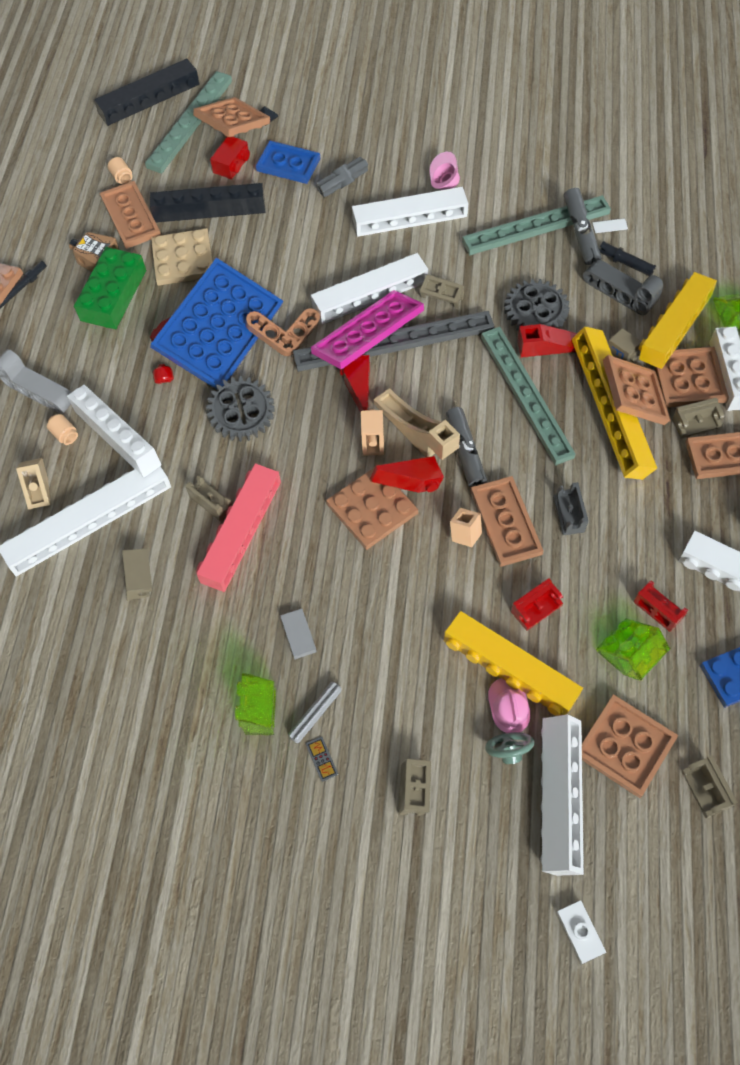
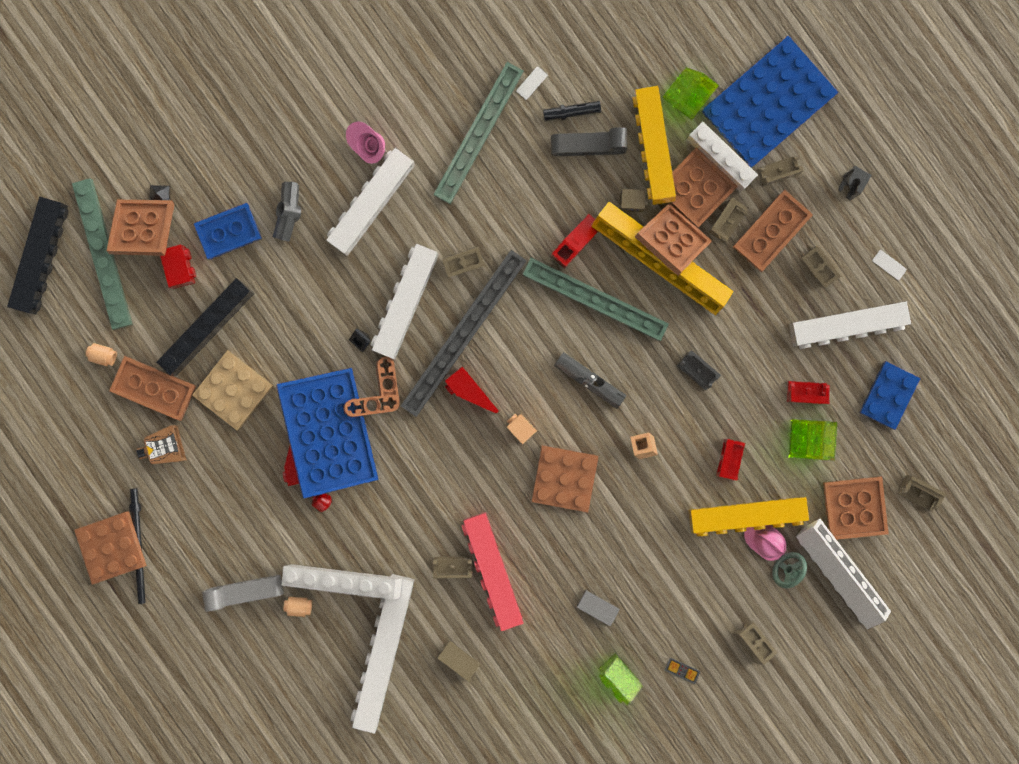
camera: 40 degrees left, 25 degrees up
(34, 483) = (322, 660): tan slope -> none
(110, 288) = (211, 467): green brick -> none
(221, 413) = (398, 498): dark grey gear -> none
(309, 288) = (360, 339): none -> black slope
(314, 712) = (654, 648): light grey axle -> none
(367, 329) = (441, 344): dark pink plate -> none
(411, 475) = (579, 432): red slope -> none
(423, 432) = (545, 395): tan arch -> none
(506, 521) = (663, 414): nougat plate -> none
(536, 304) = (547, 232): dark grey gear -> none
(578, 212) = (507, 102): dark grey piece -> none
(581, 932) = (910, 640): white plate -> none

